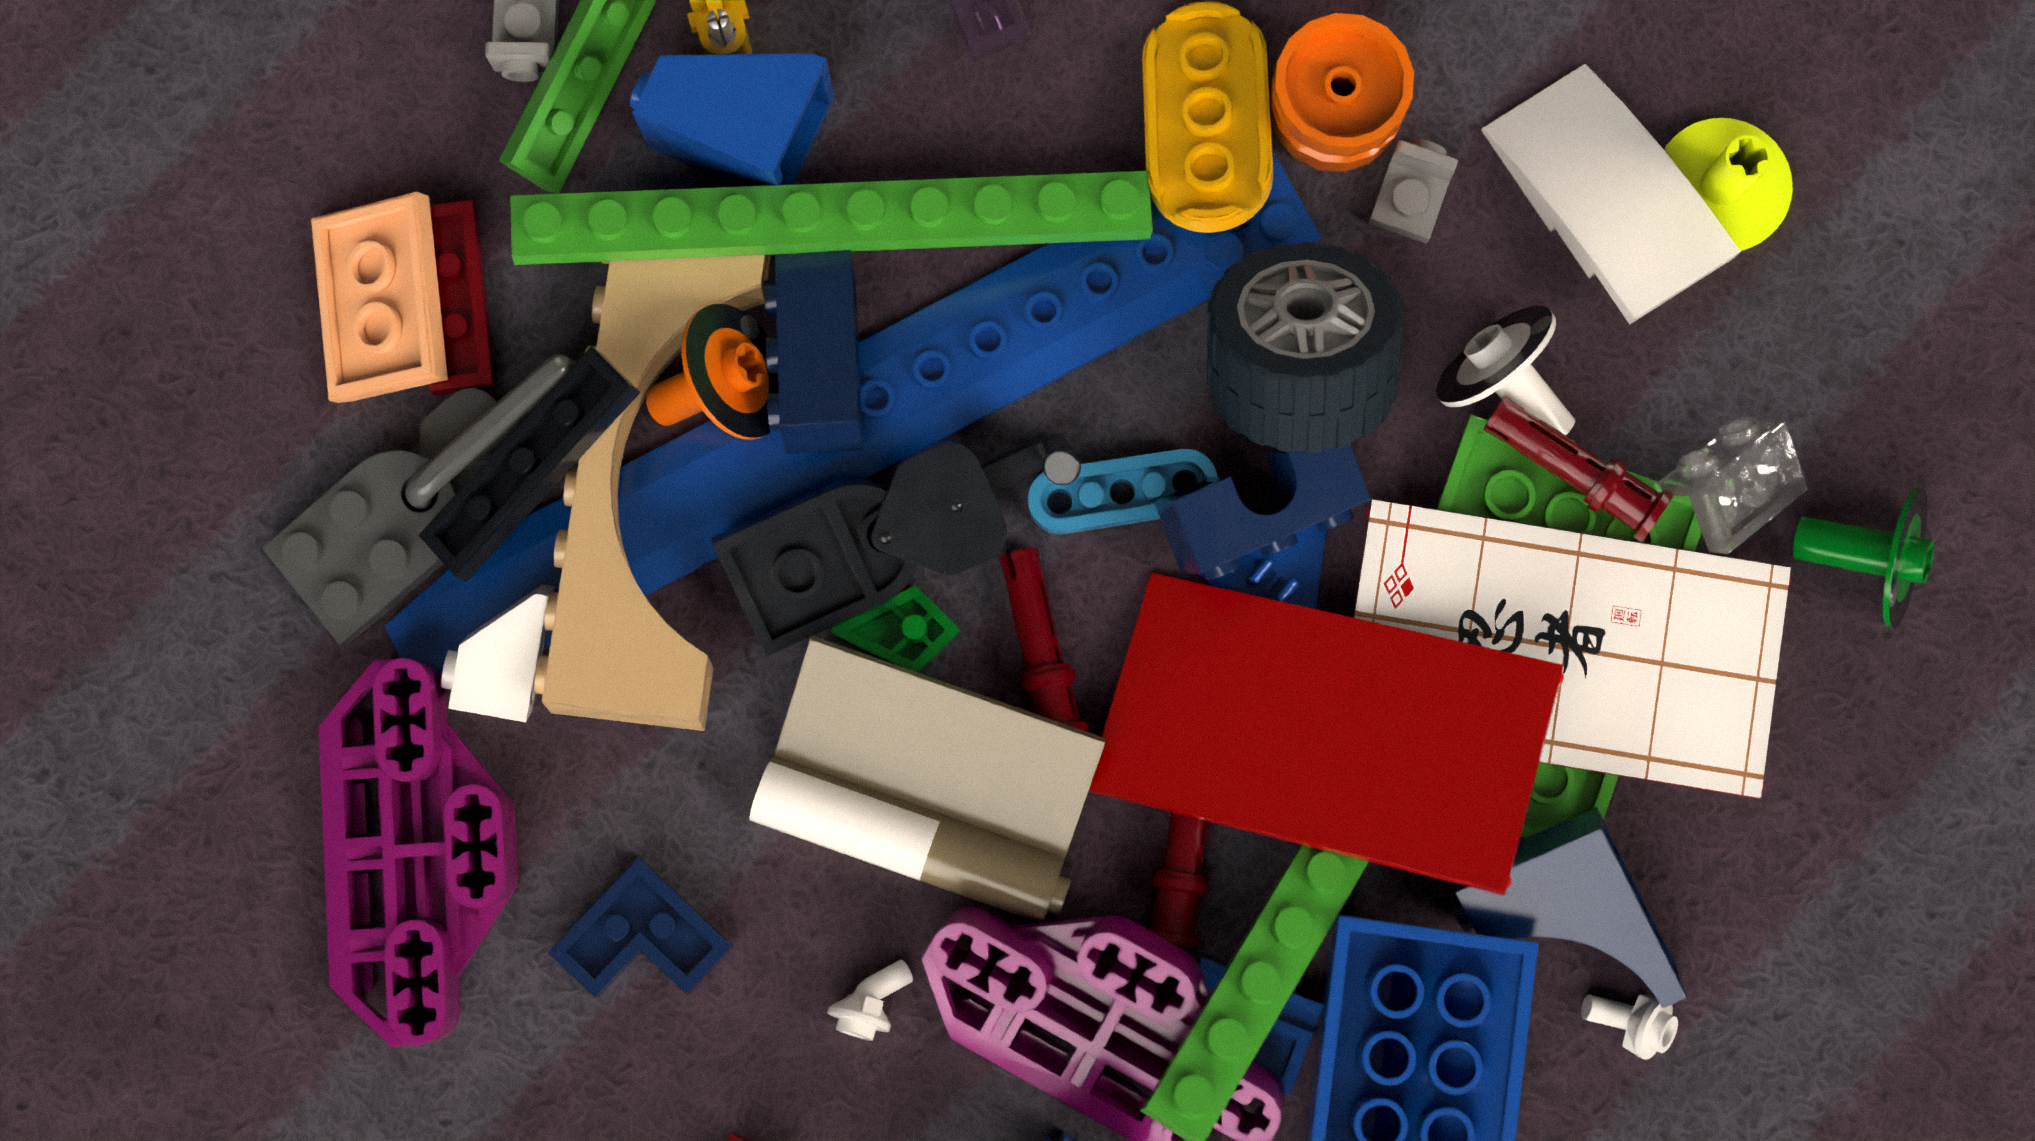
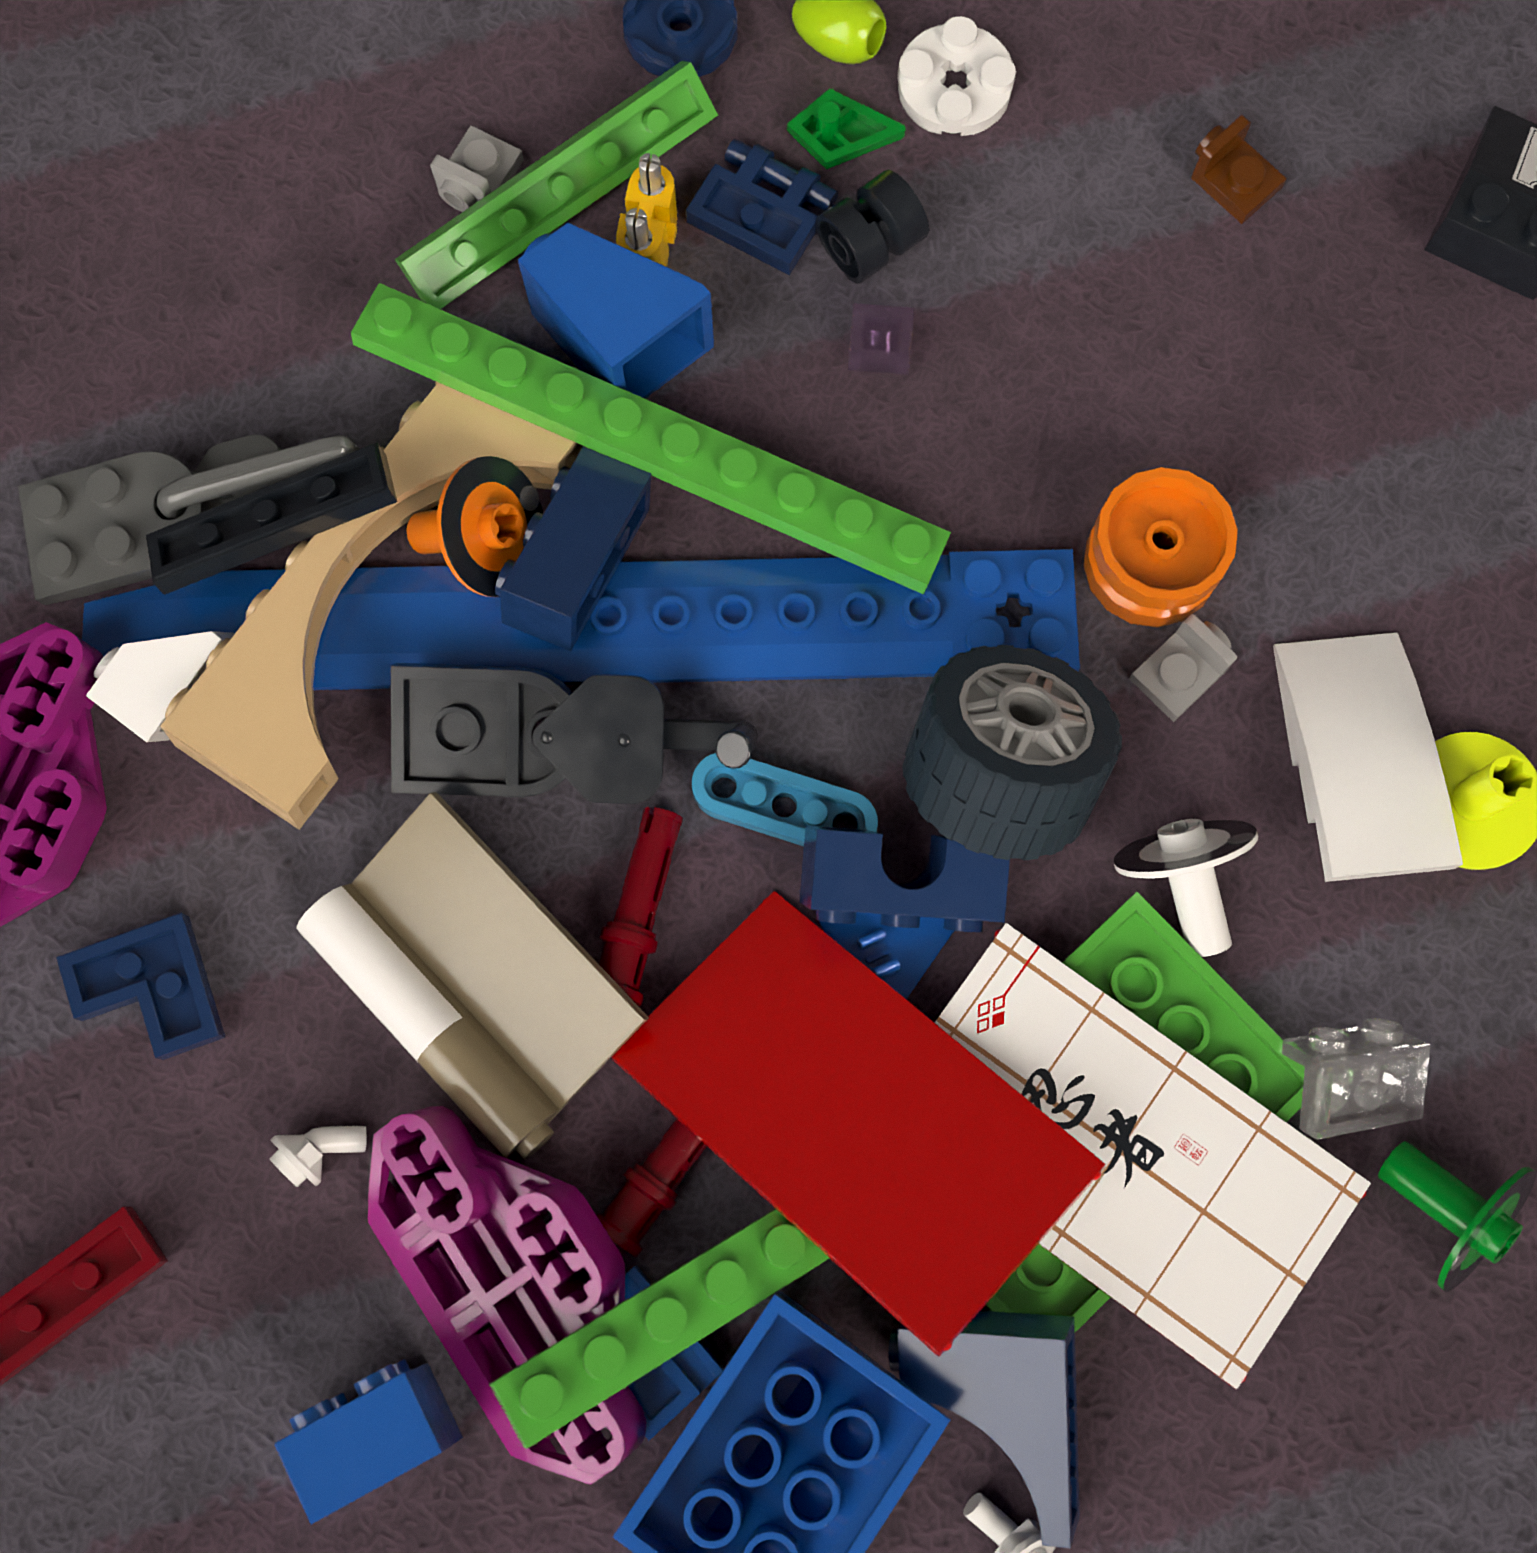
camera: 25 degrees right, 5 degrees down
(379, 298) = (233, 326): light nougat tile -> none
(462, 299) = (296, 356): dark red plate -> none
(901, 631) = (523, 830): green piece -> none
(1207, 117) = (1028, 515): yellow tile -> none
(1603, 483) = (1228, 1013): dark red pin -> none

